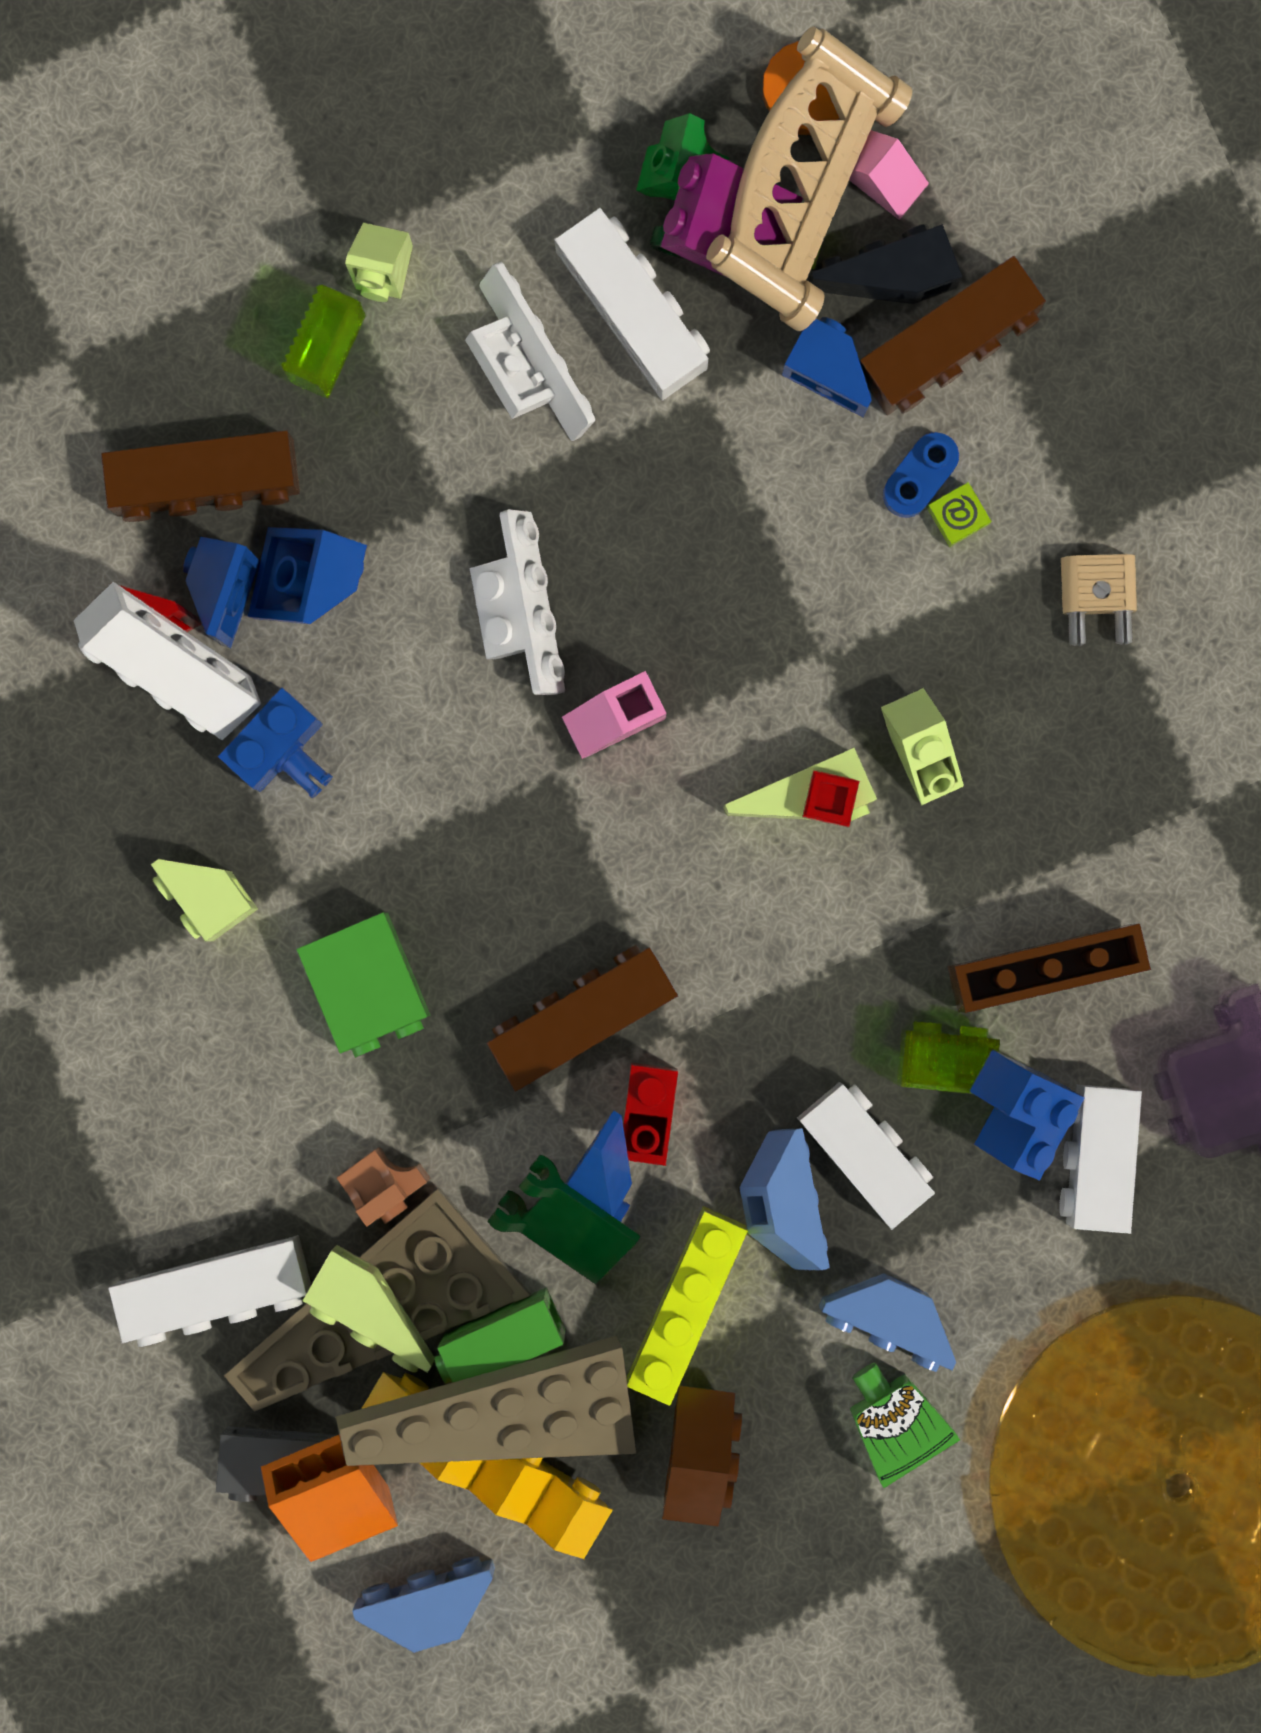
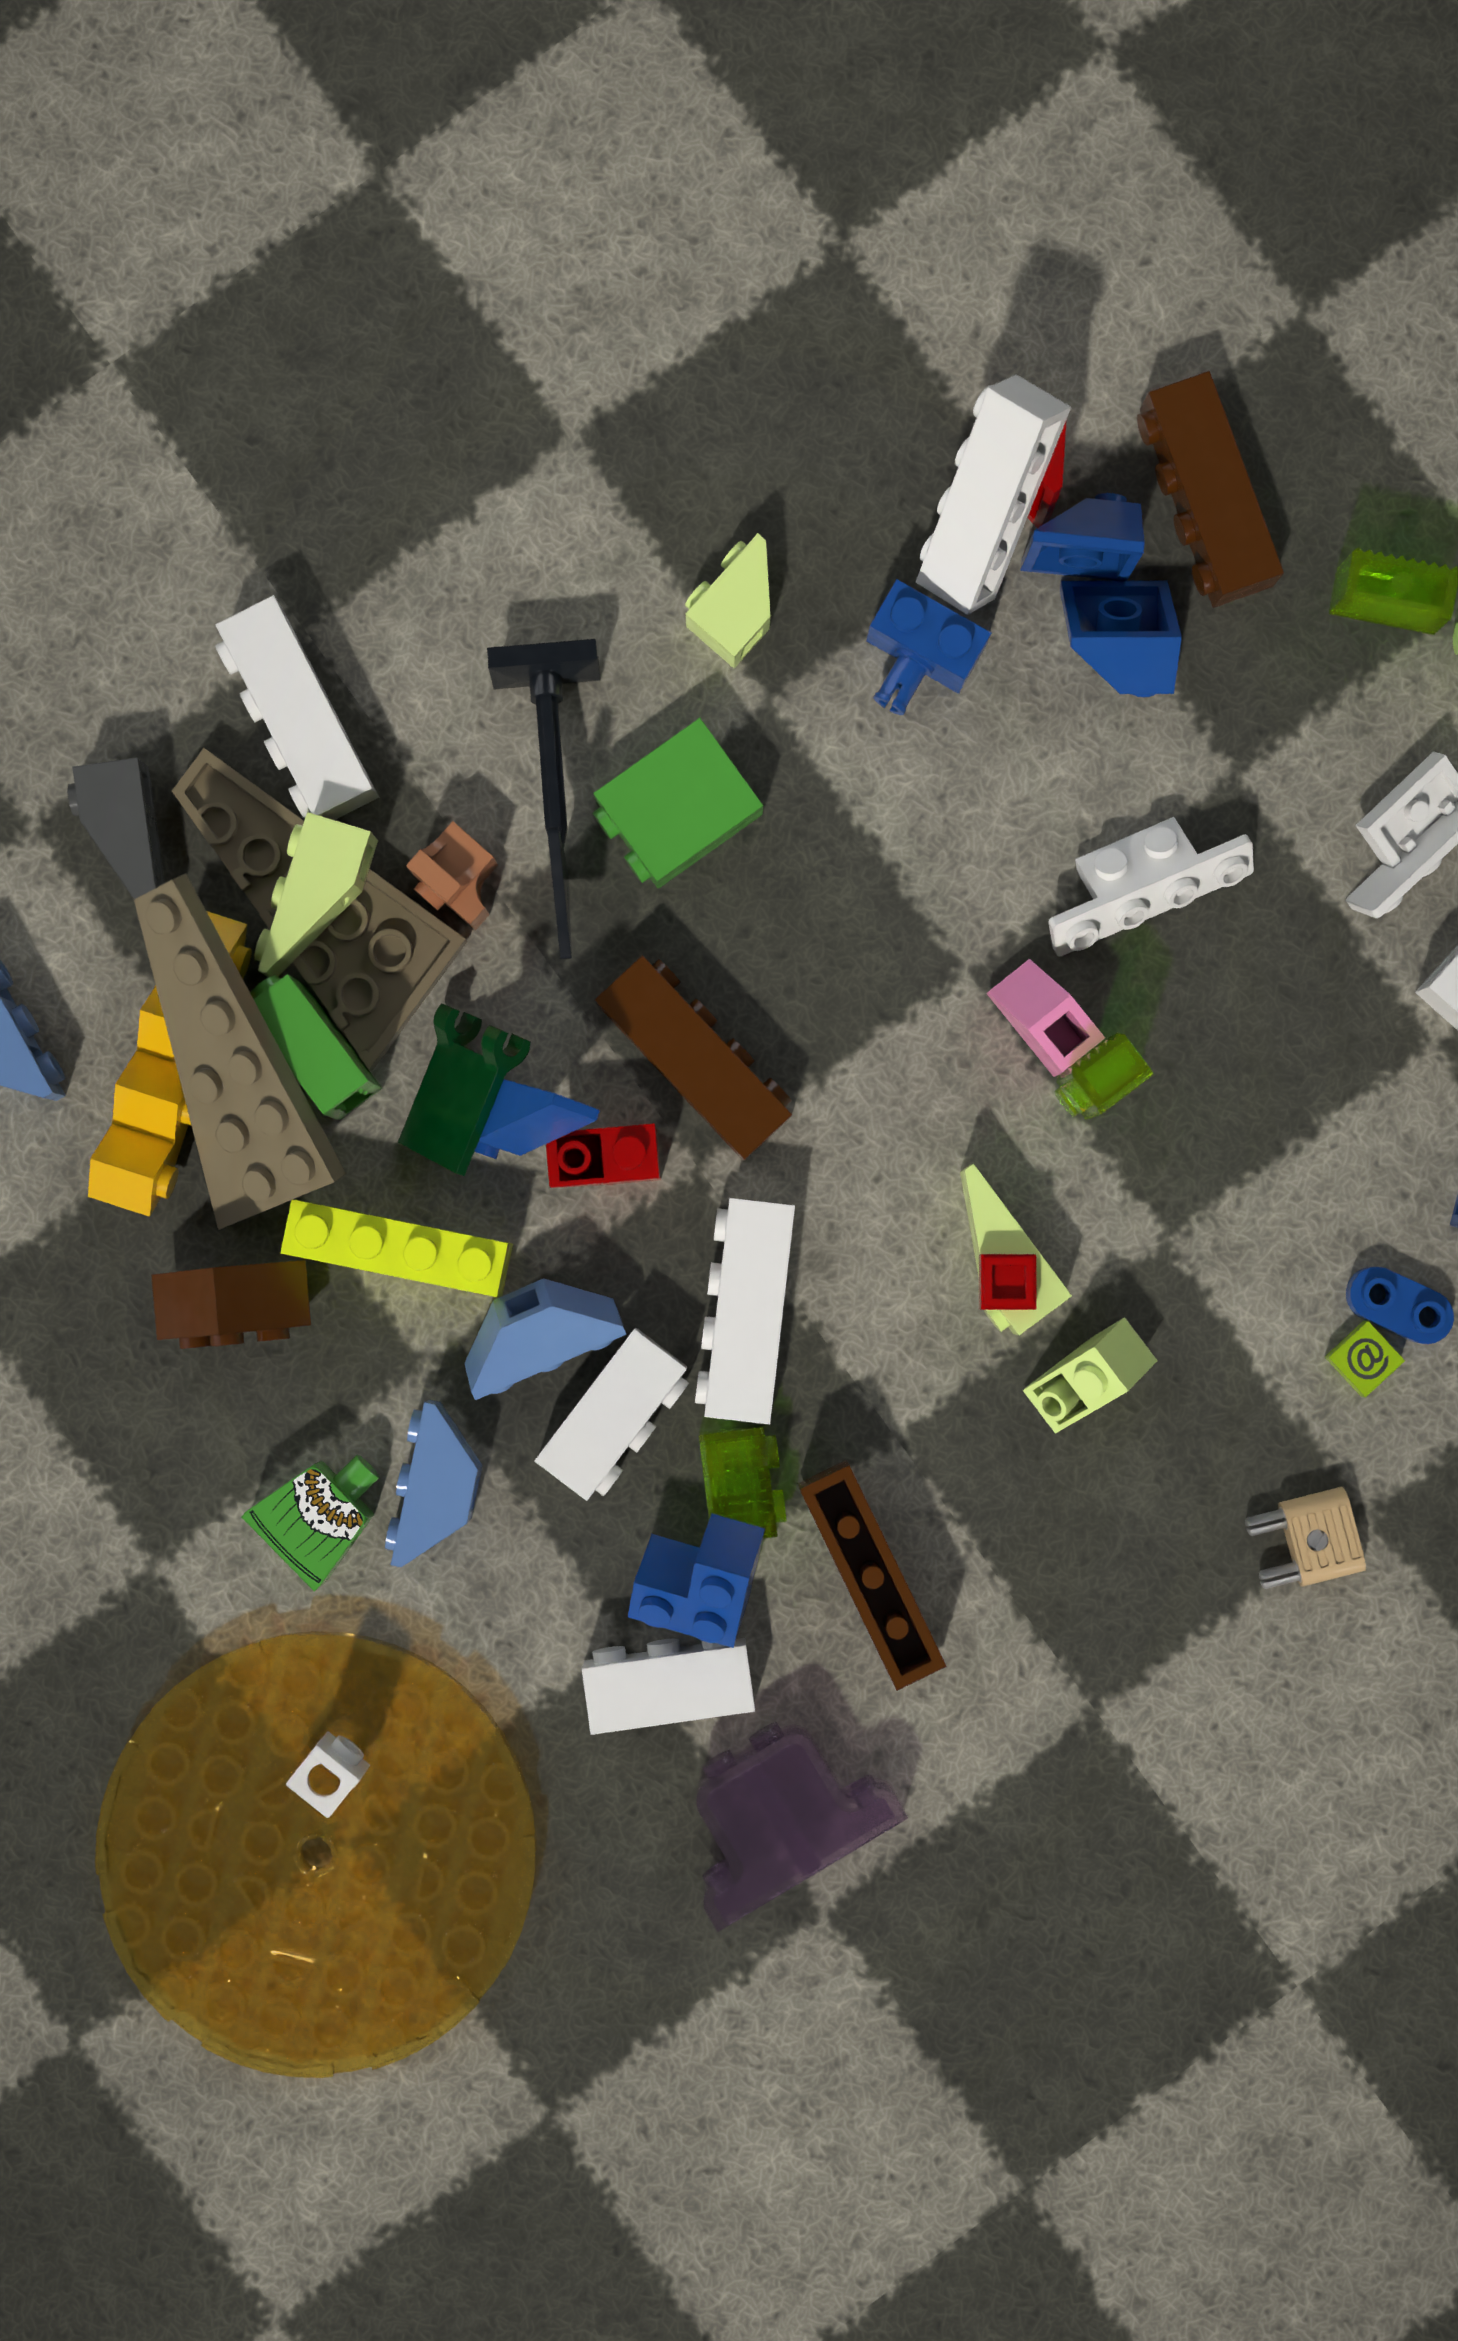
camera: 70 degrees right, 0 degrees up
(224, 1071) = (544, 670): none -> black piece
(325, 1500) = (88, 892): orange brick -> none
(678, 680) = (1102, 1077): none -> clear neon green brick
(805, 1020) = (748, 1311): none -> white brick
(1107, 1447) = (339, 1757): none -> white bracket

